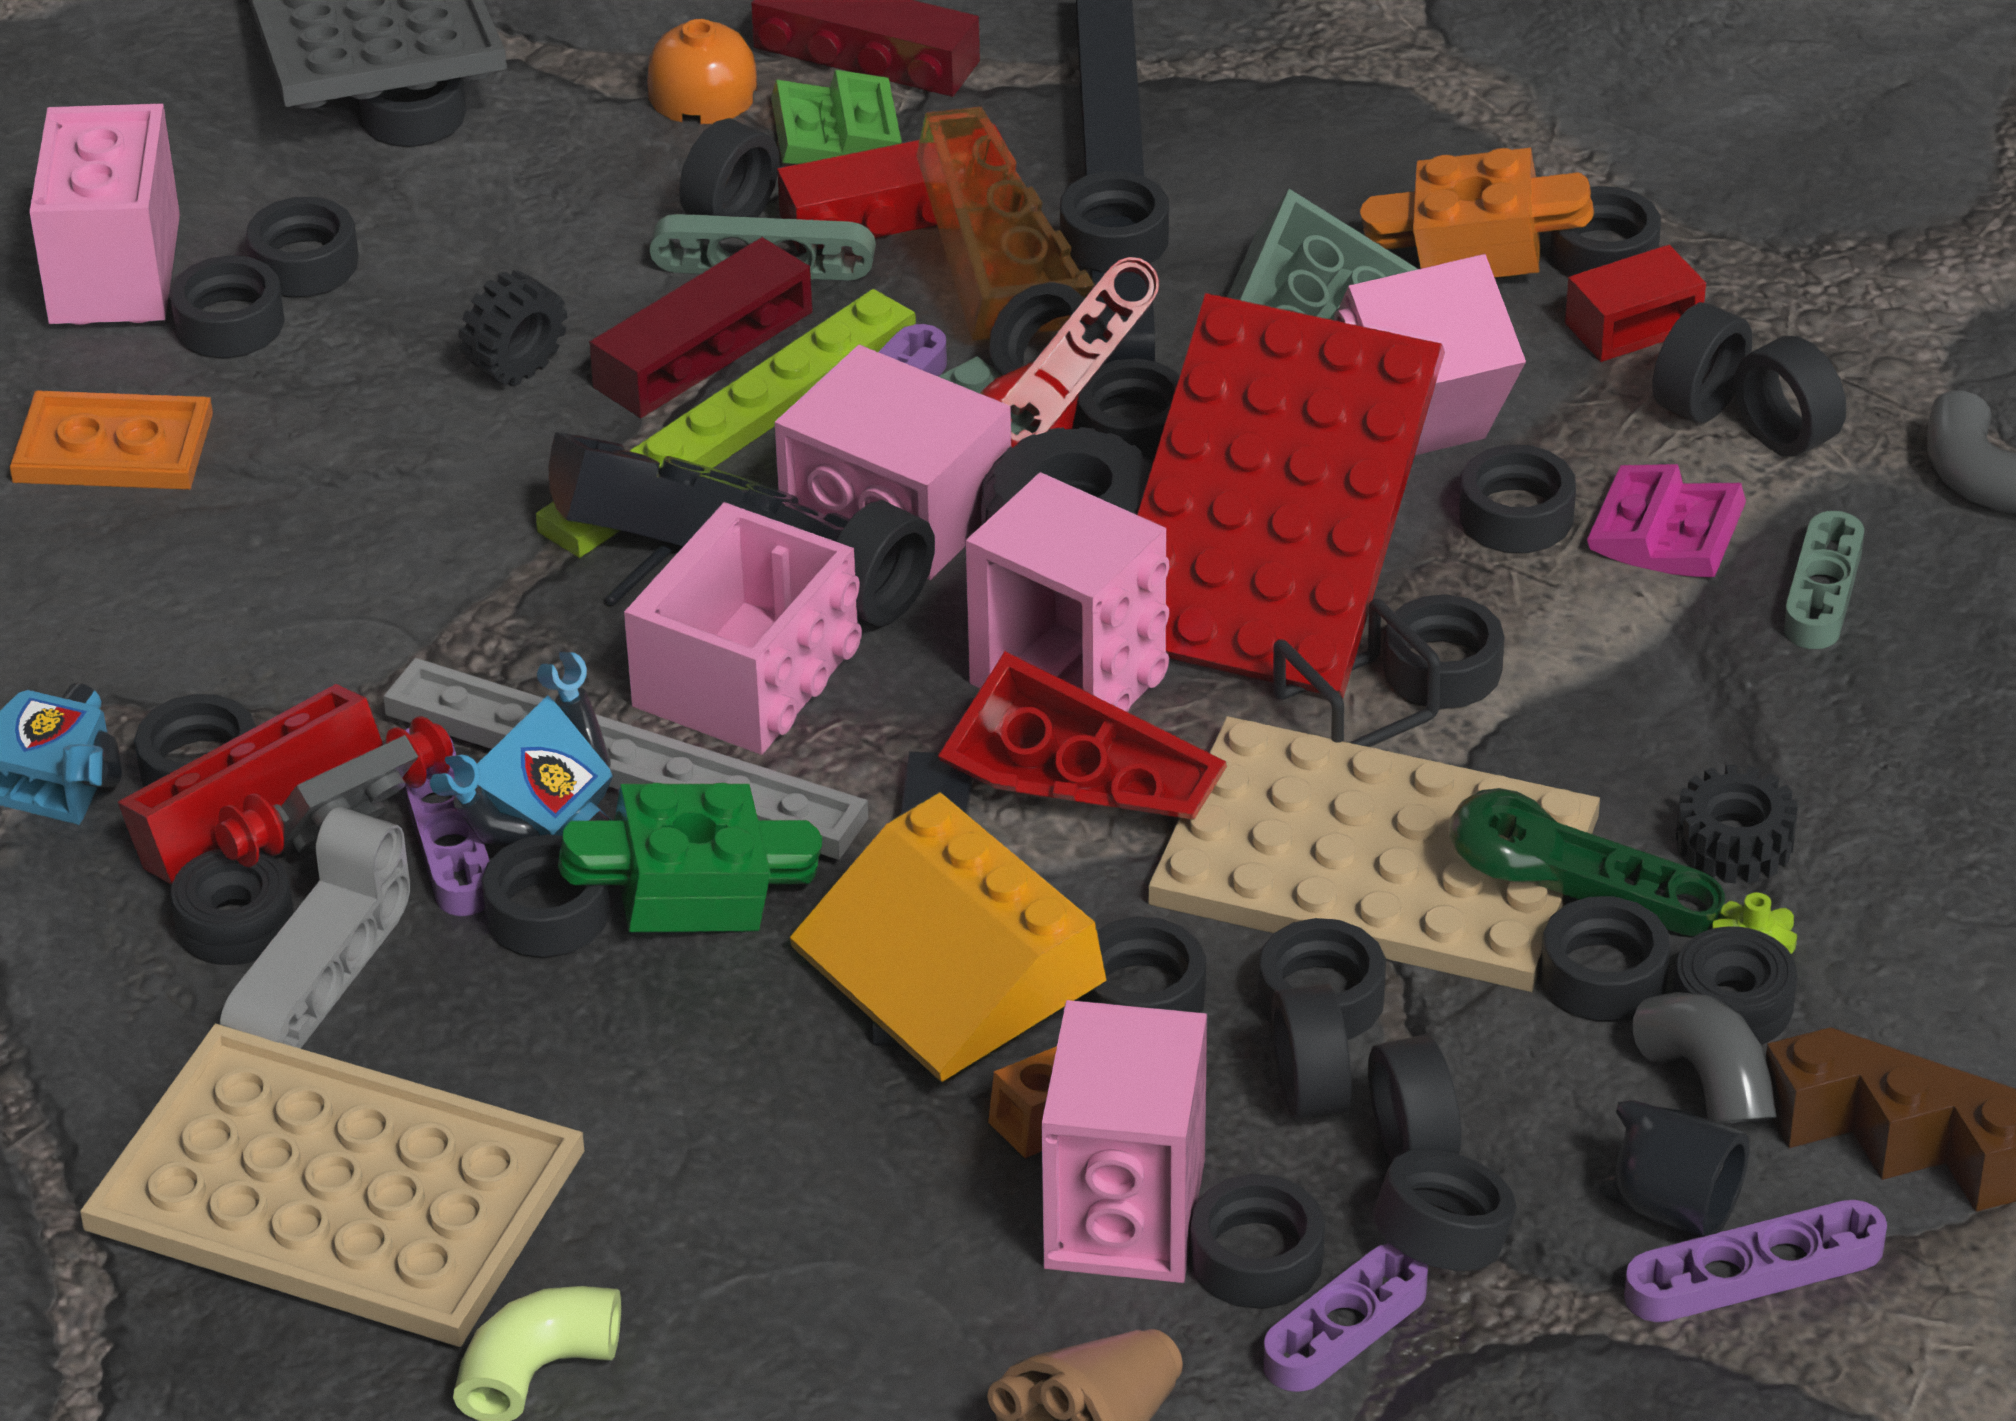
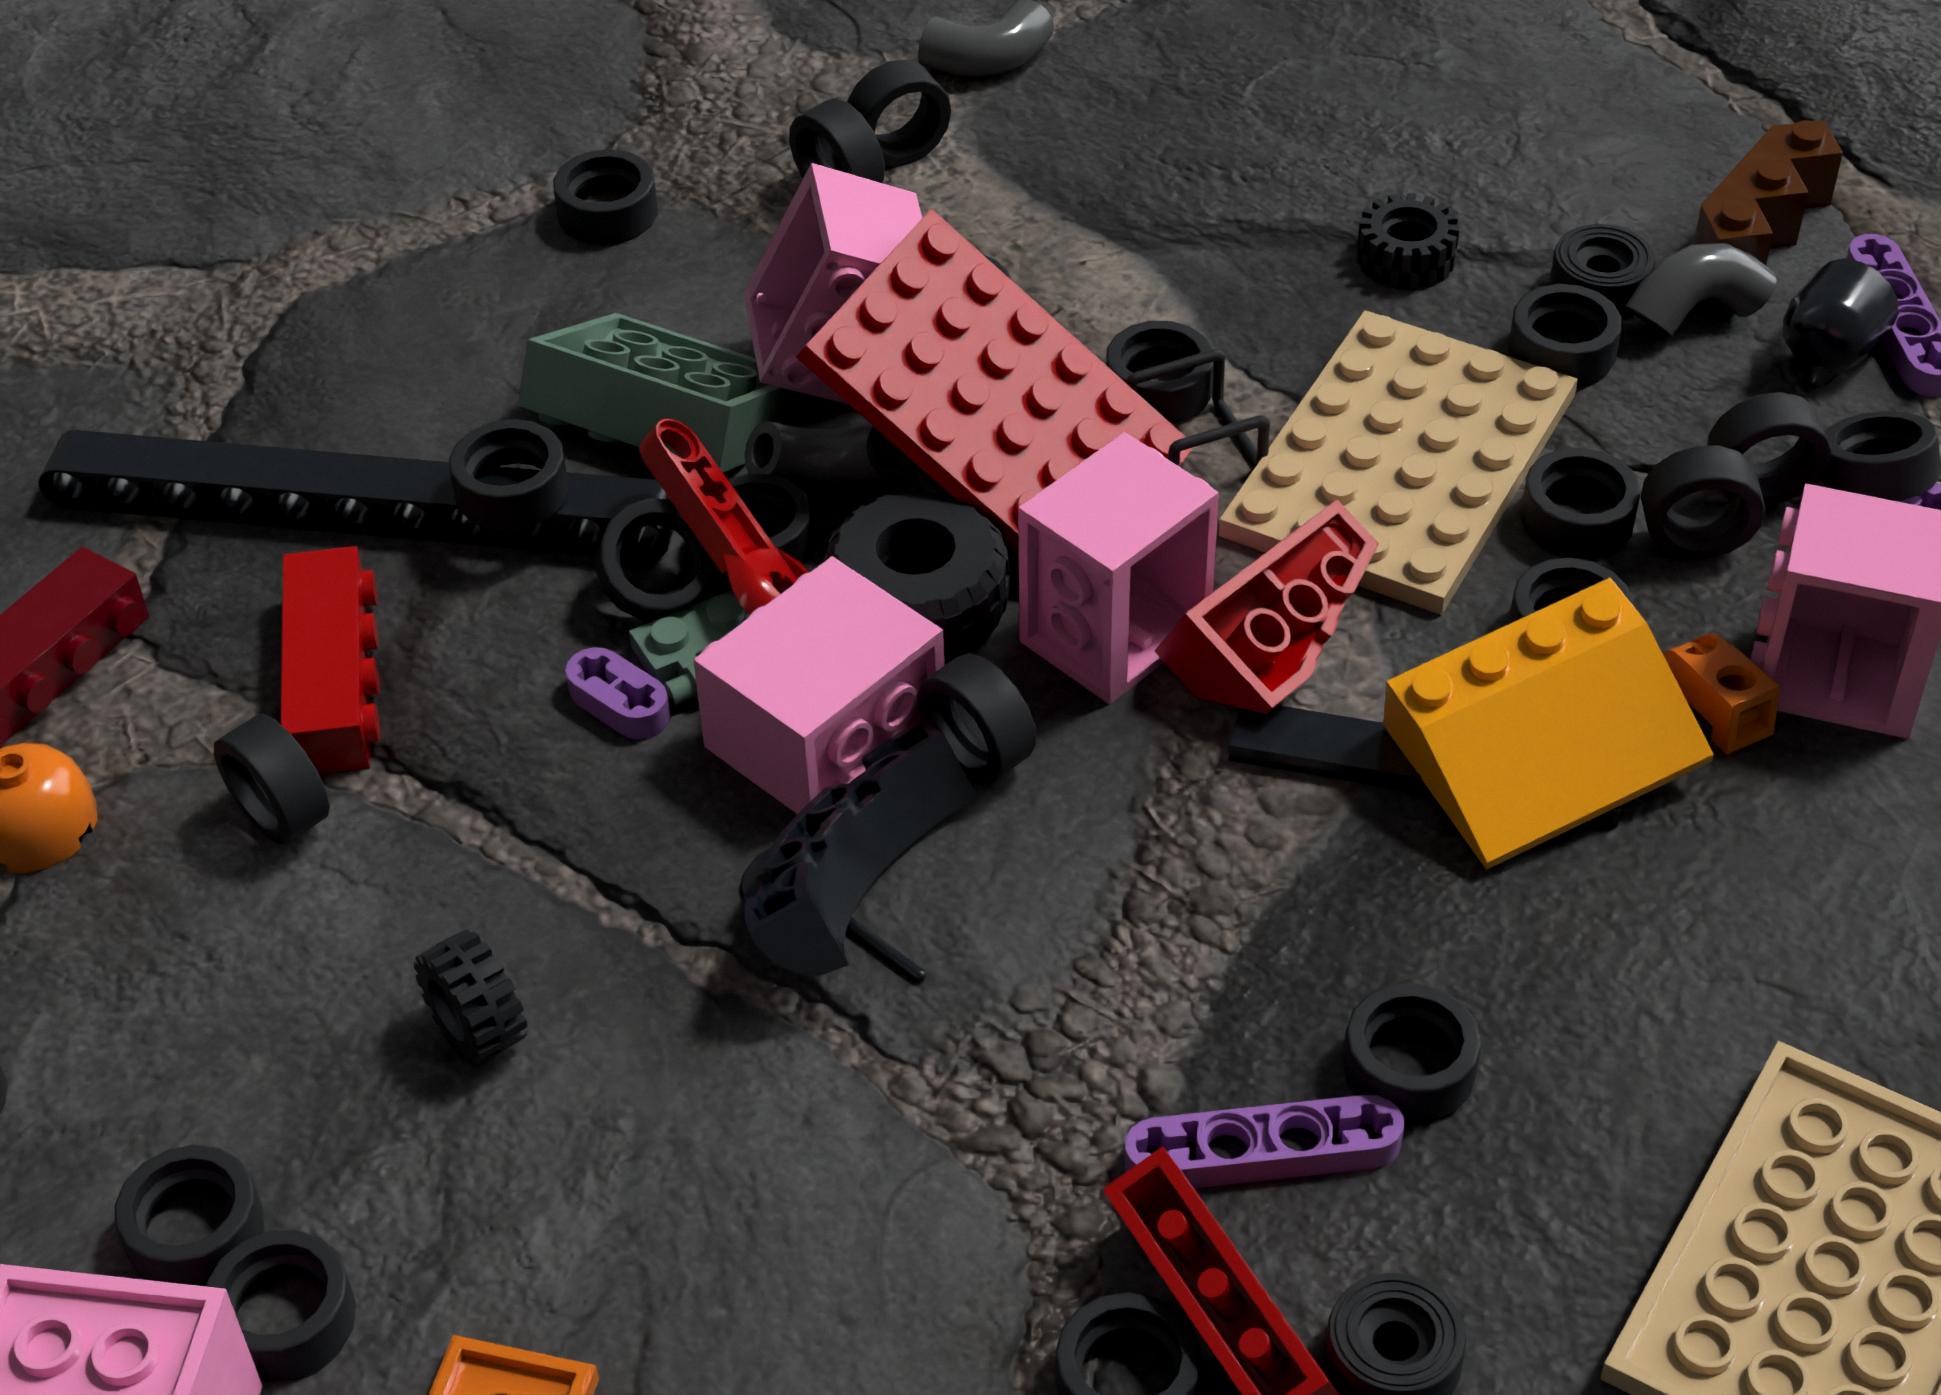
camera: 80 degrees left, 5 degrees up
(330, 933) = (1478, 1258): light grey beam -> none
(355, 785) = (1286, 1203): plate -> none
(488, 711) = (1191, 983): light grey plate -> none
(541, 772) = (1261, 1019): dark azure torso -> none
(690, 856) = (1394, 914): green brick -> none
(701, 327) = (504, 845): dark red brick -> none
(742, 628) = (1060, 832): bright pink container -> none
(750, 403) = (652, 846): lime plate -> none
(809, 233) = (376, 783): sand green beam -> none
(836, 120) = (159, 707): bright green slope -> none
(989, 219) = (474, 567): clear orange wedge -> none
(1479, 208) = (567, 251): orange brick -> none
(1575, 860) = (1465, 332): dark green beam -> none
(1631, 301) = (713, 191): red brick -> none
(1666, 524) = (1012, 220): dark pink slope -> none
(1758, 916) = (1522, 257): lime plant -> none
(1830, 598) = (1136, 161): sand green beam -> none

